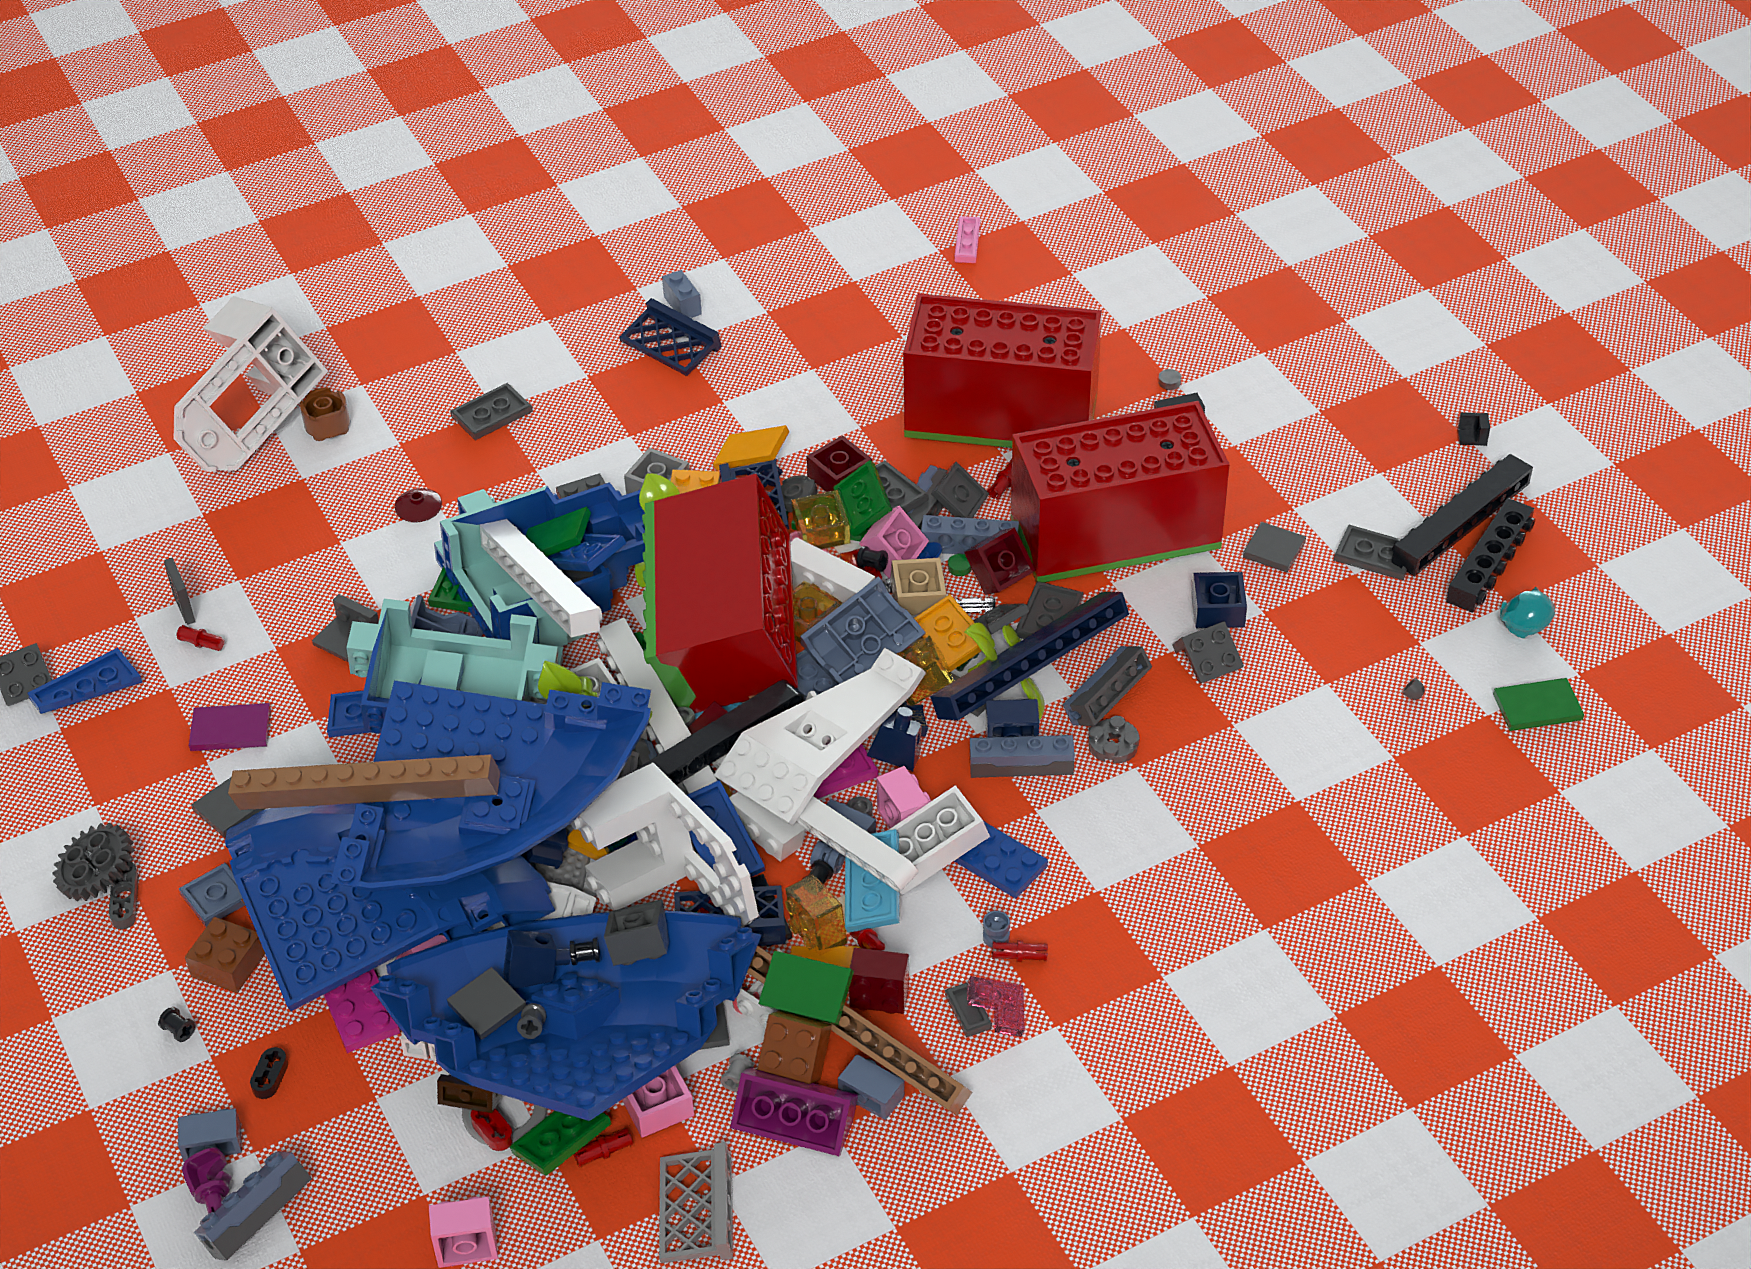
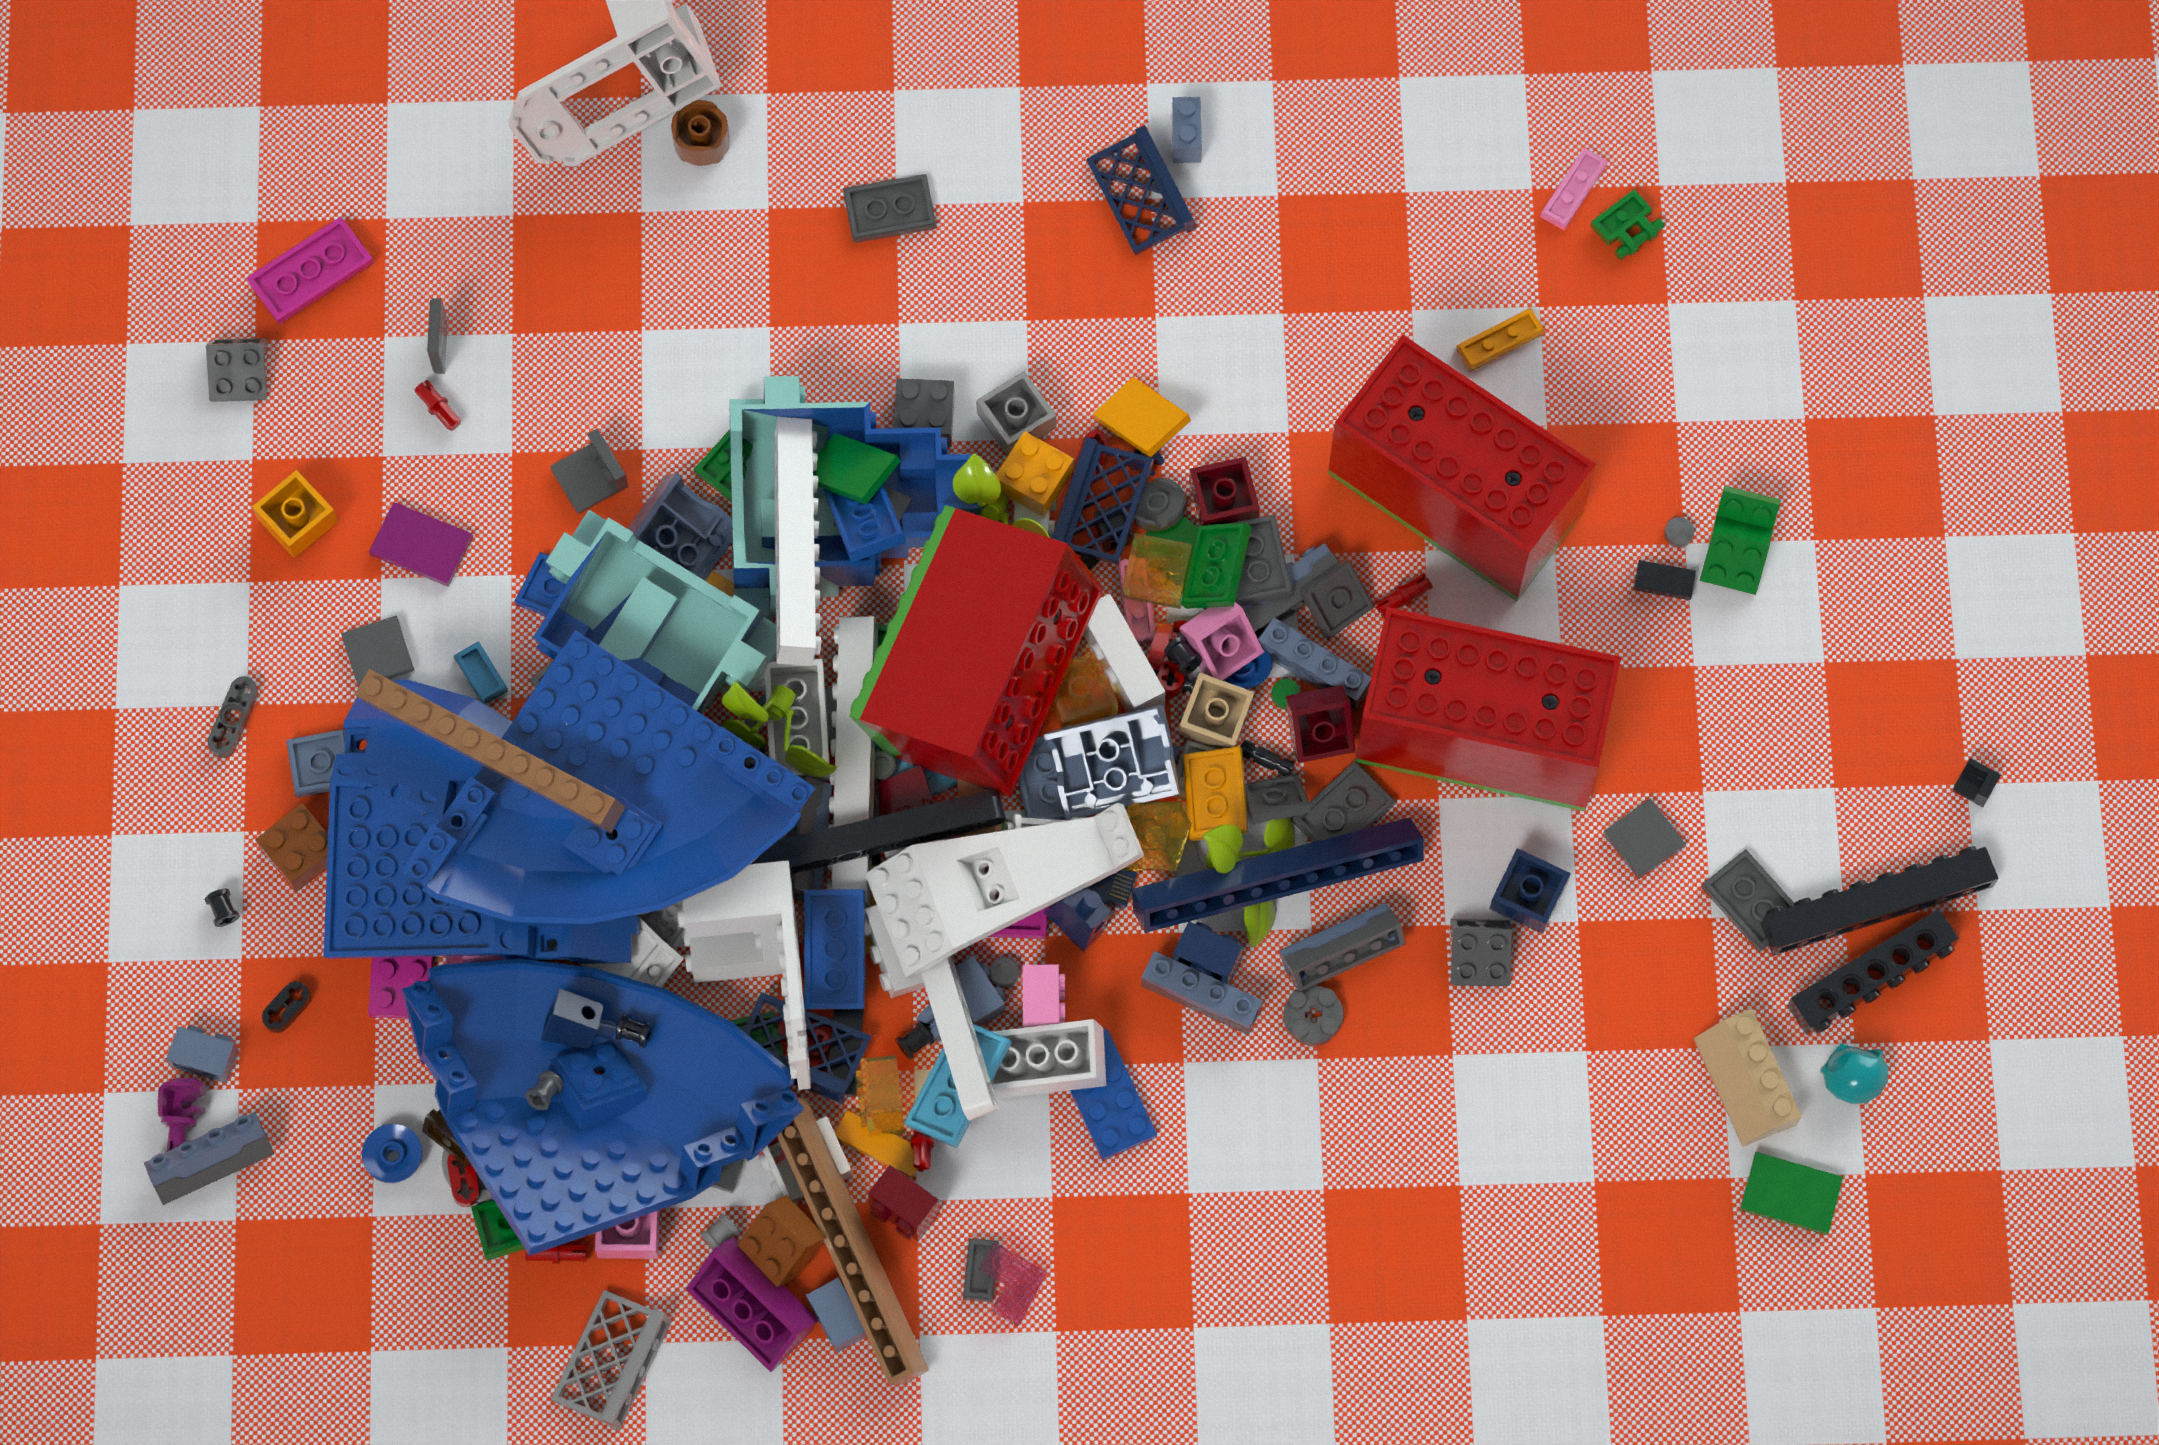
camera: 25 degrees right, 25 degrees up
(53, 597) = (309, 270): none -> dark pink plate
(77, 871) = (216, 666): dark grey gear -> none
(88, 681) = (306, 411): blue wing -> none
(114, 740) = (295, 514): none -> light orange brick
(416, 1126) = (392, 1139): none -> blue dish
(418, 505) = (752, 325): dark red dish -> none
(463, 1231) = (382, 1286): bright pink brick -> none
(486, 1003) = (511, 1048): dark grey tile -> none
(637, 933) = (690, 1039): dark grey slope -> none
(806, 987) = (819, 1188): green tile -> none
(996, 927) = (1056, 1188): sand blue wheel -> none
(1010, 242) = (1621, 218): none -> green plate
(1019, 951) = (1066, 1230): red pin -> none
(1216, 361) = (1740, 540): none -> green bracket
(1414, 689) = (1669, 1109): dark grey hinge -> none
(1455, 646) = (1747, 1078): none -> tan slope

